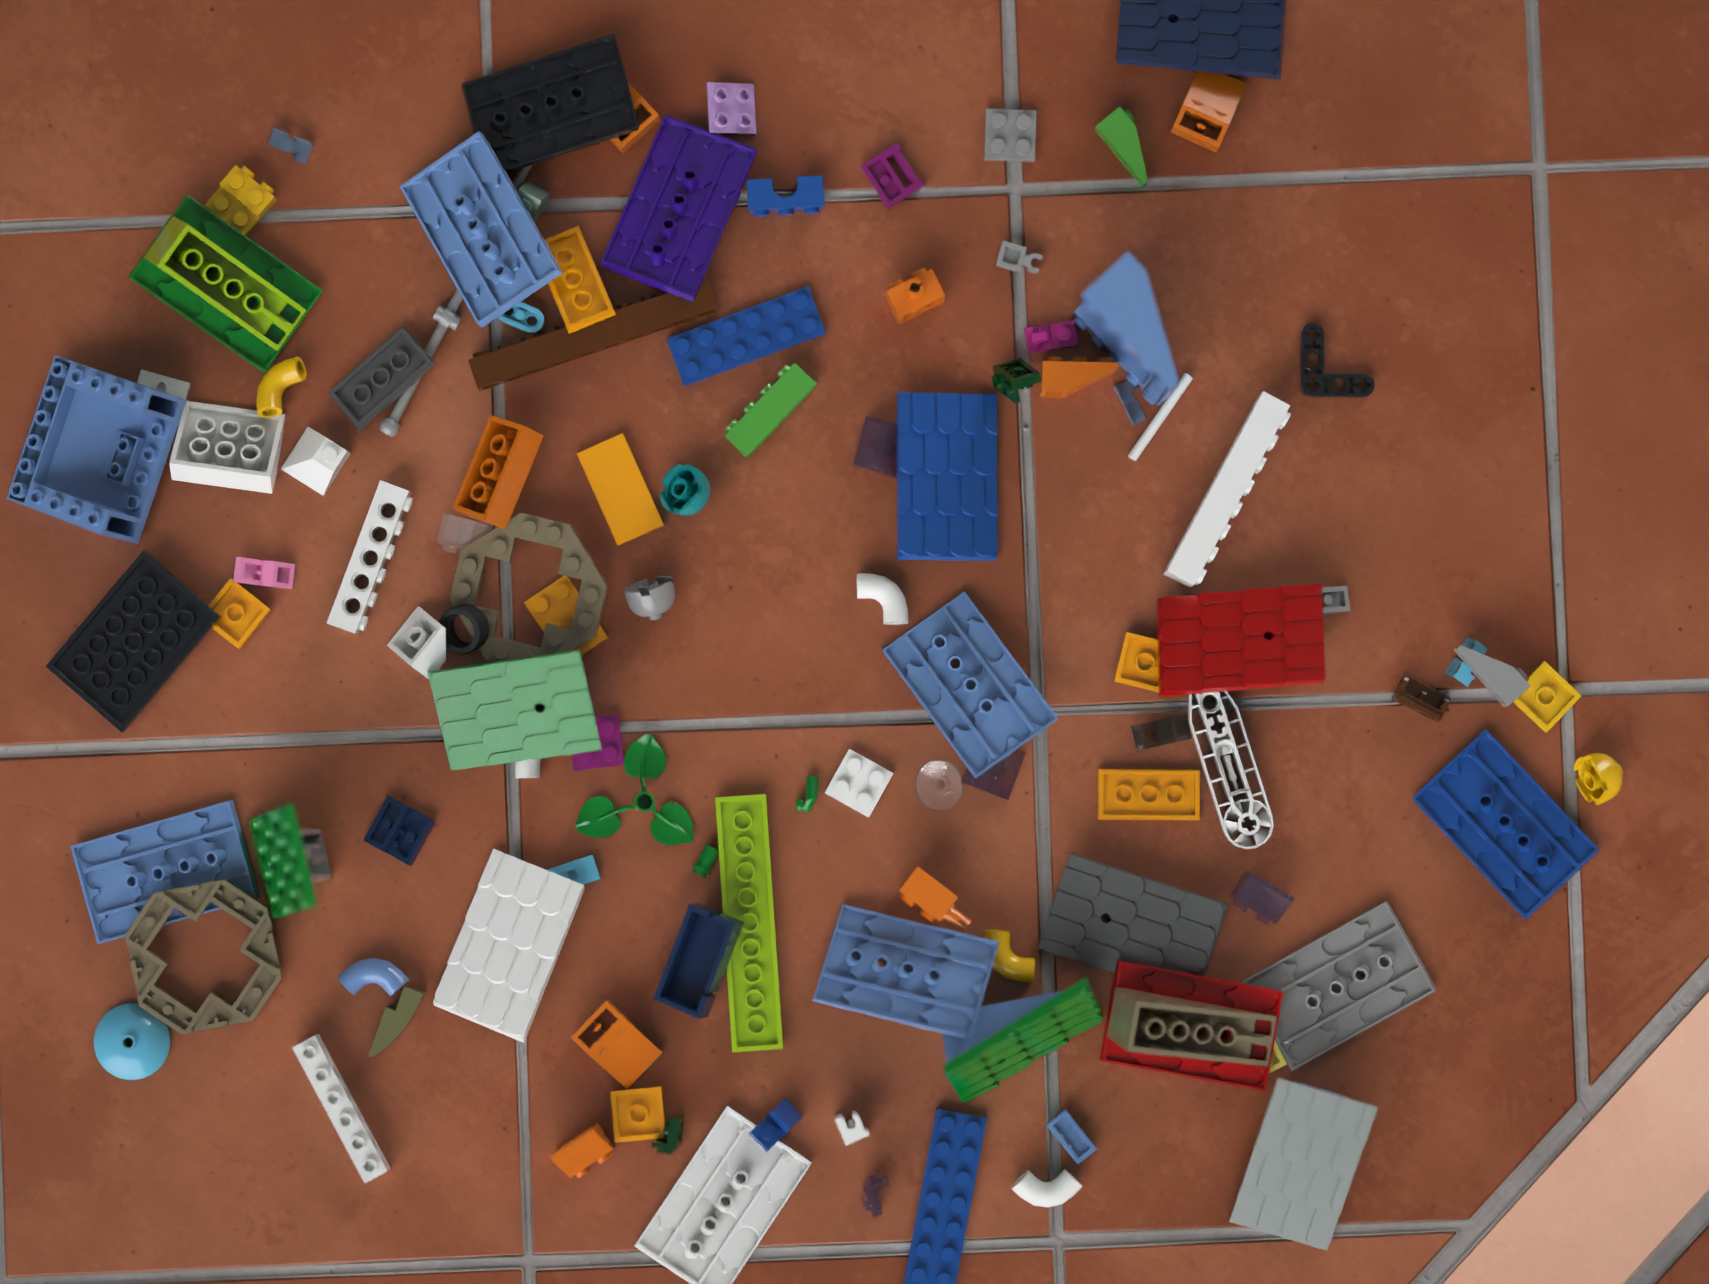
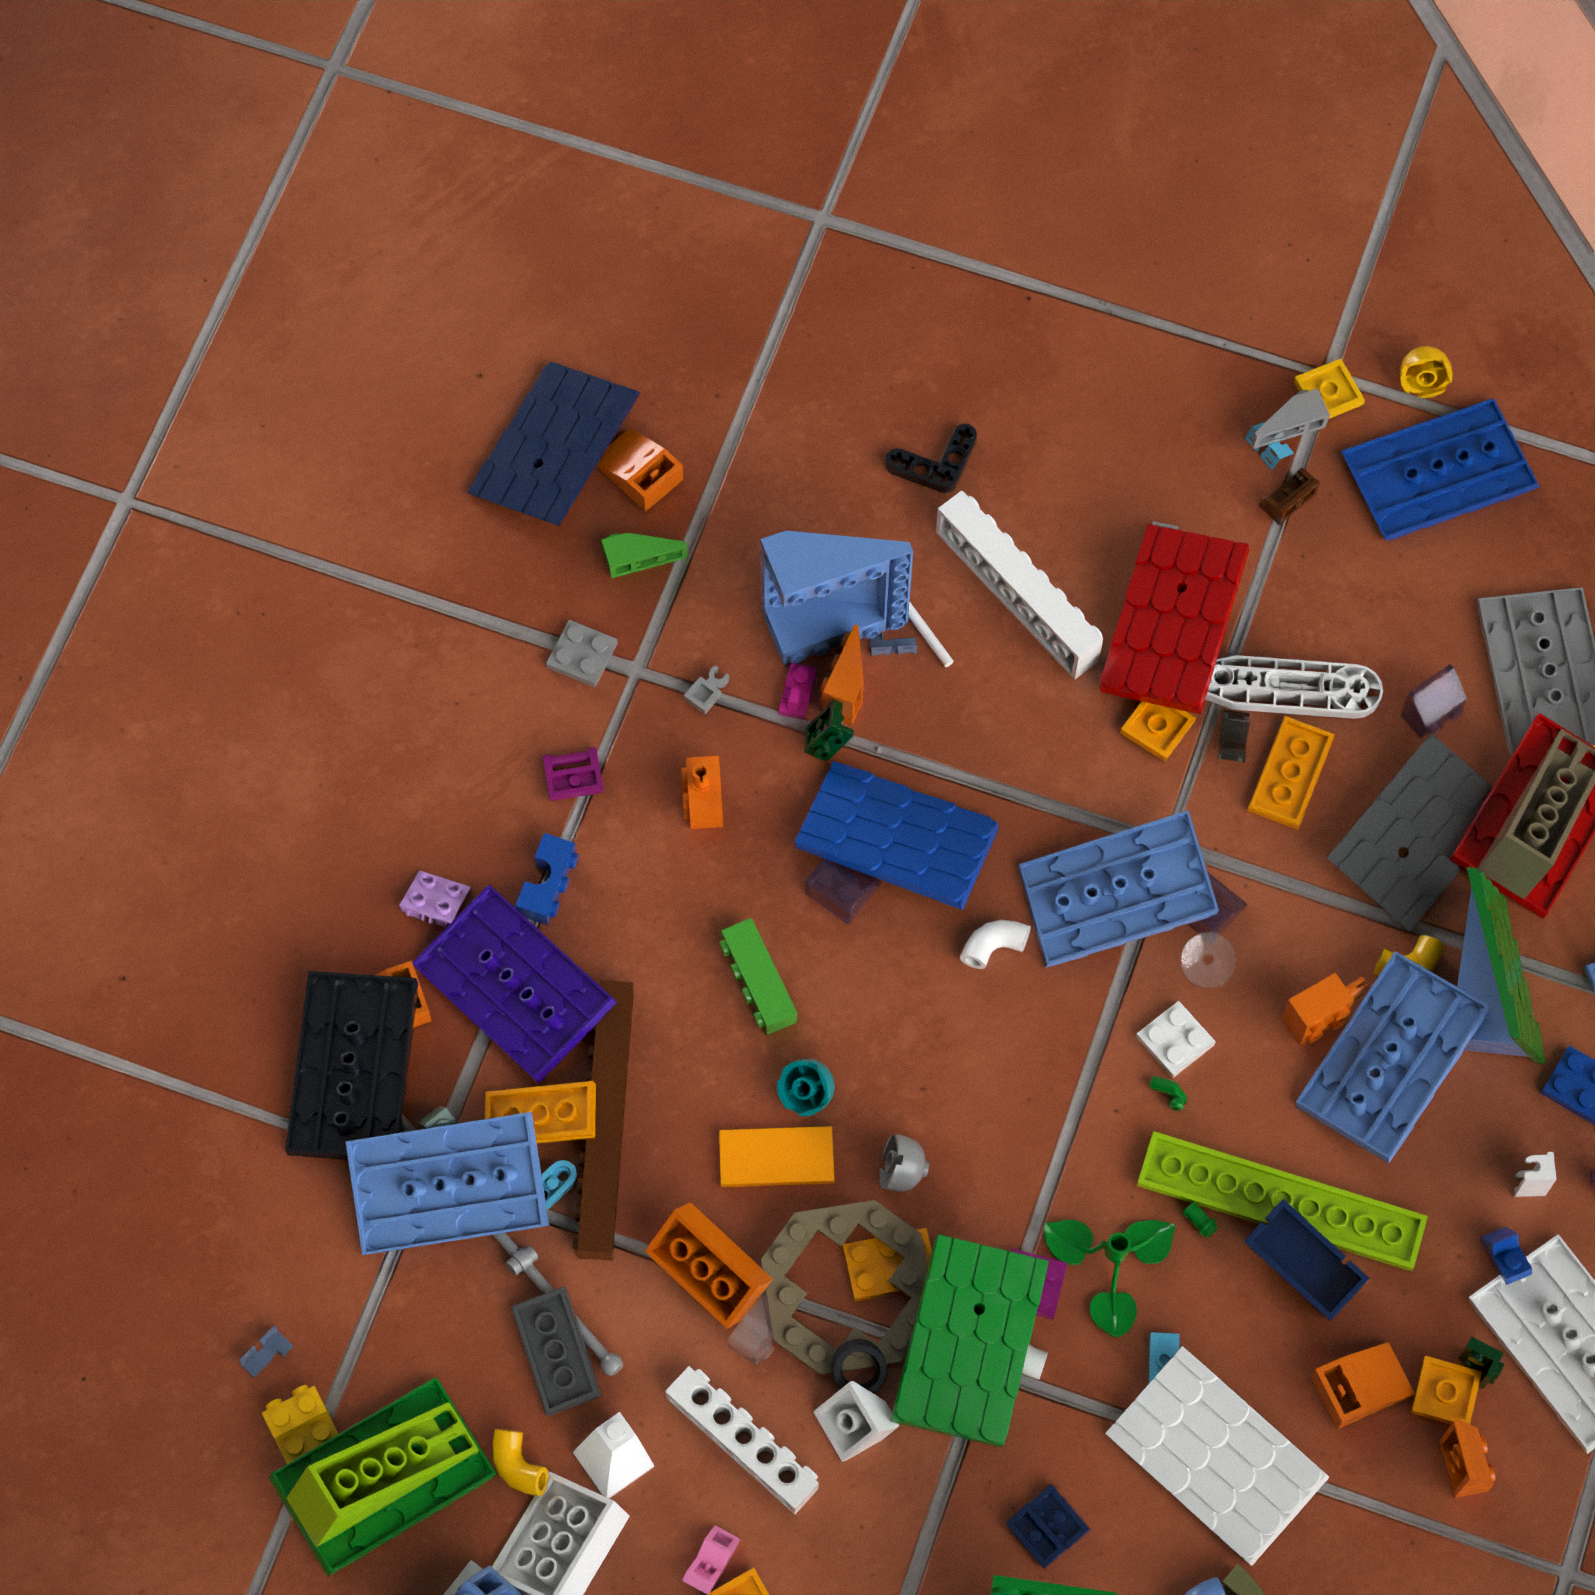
camera: 65 degrees left, 20 degrees down
(746, 336) = (672, 974): blue plate -> none

